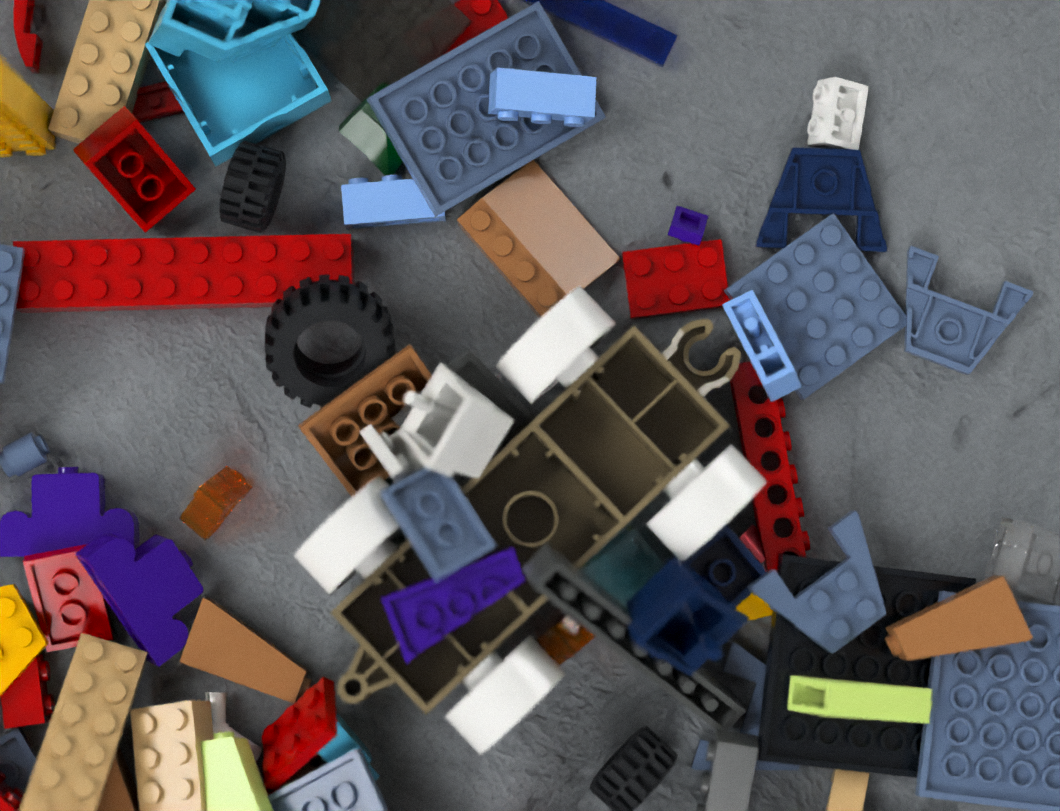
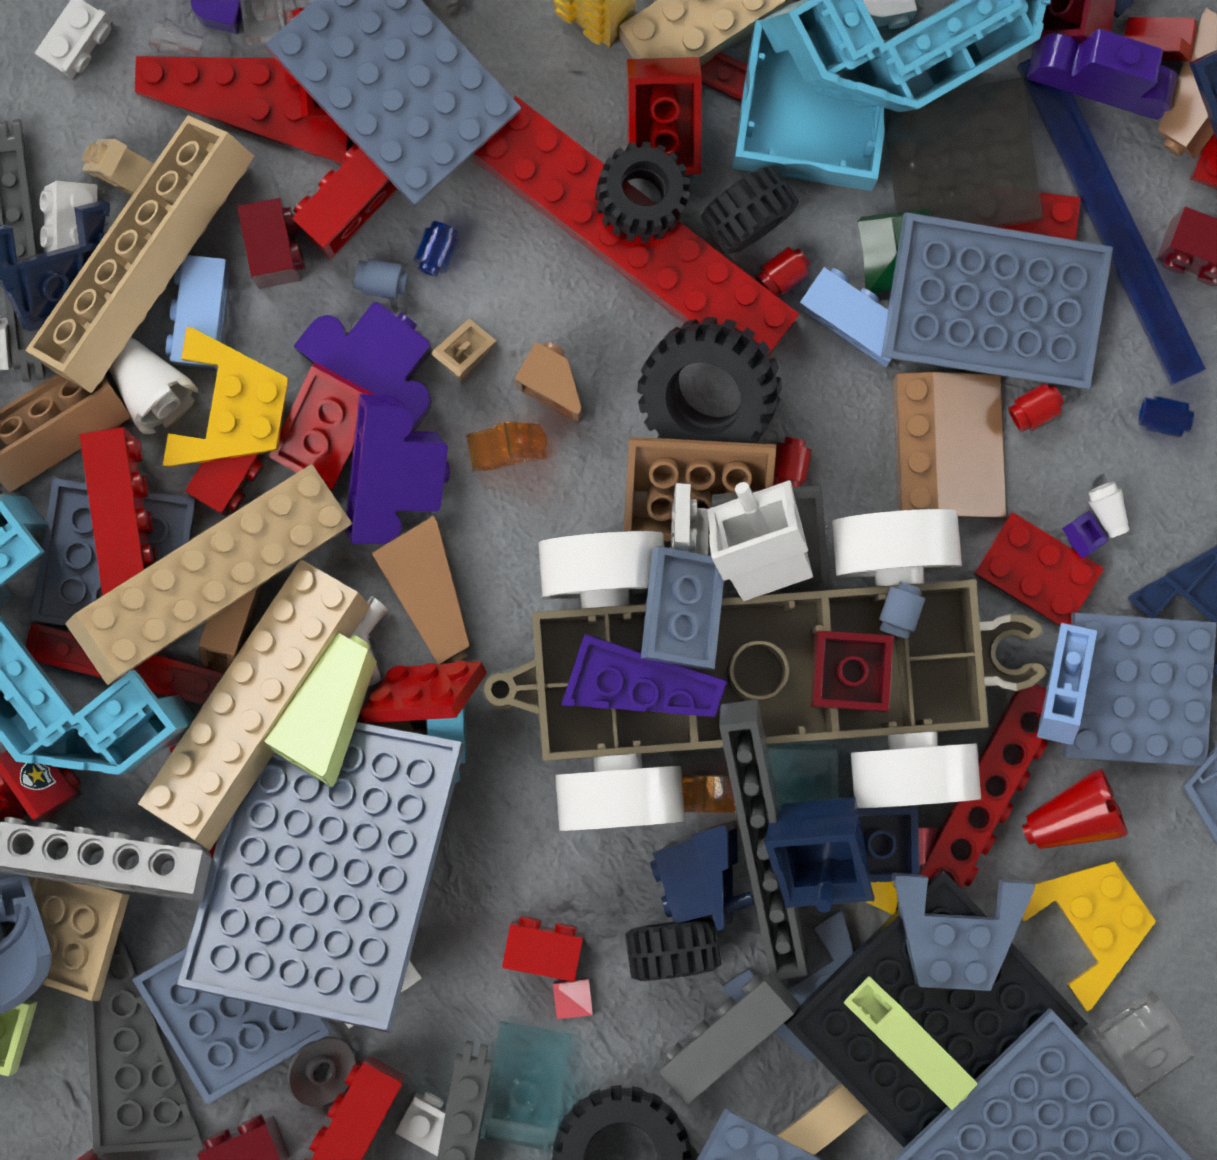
camera: 35 degrees right, 0 degrees up
(46, 399) = (436, 248): none -> clear blue brick
(126, 457) = (464, 349): none -> tan slope
(154, 213) = (648, 165): none -> black tyre
(206, 429) = (549, 380): none -> medium nougat slope
(314, 211) = (784, 271): none -> red brick
(433, 346) = (791, 462): none -> red brick
(542, 96) = (1051, 328): light blue brick -> none
(578, 162) = (1036, 407): none -> red brick
(597, 466) = (852, 671): none -> dark red brick
(598, 392) = (901, 610): none -> sand blue brick
(611, 702) = (700, 876): none -> dark blue piece
(676, 92) = (1165, 416): none -> clear blue brick
(690, 192) = (1110, 509): none -> white cone
(846, 434) = (1077, 815): none -> red cone
(925, 490) = (1105, 917): none -> yellow wing
(966, 621) = (1054, 1051): medium nougat slope -> none

